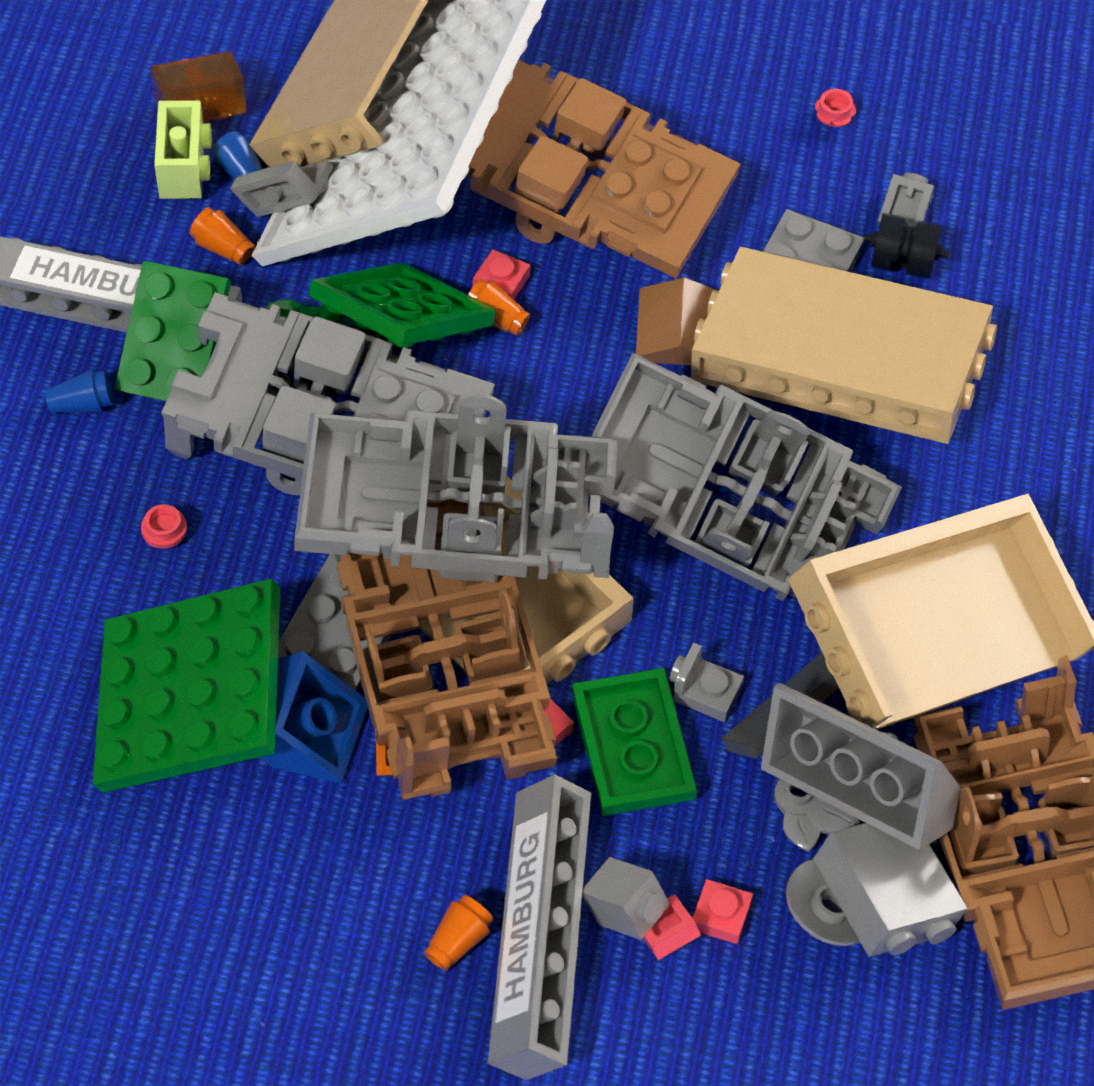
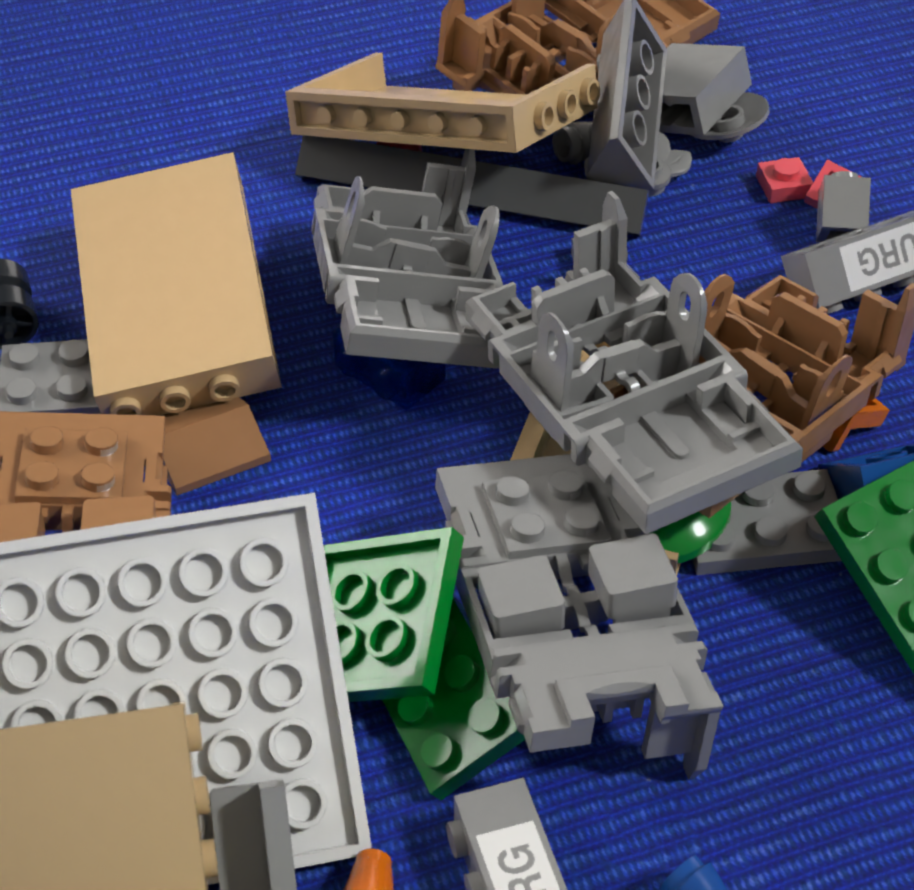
camera: 120 degrees left, 10 degrees down
(163, 526) = (795, 719): coral plate -> none
(165, 329) = (569, 827): green plate -> none
(633, 742) = (706, 253): green plate -> none

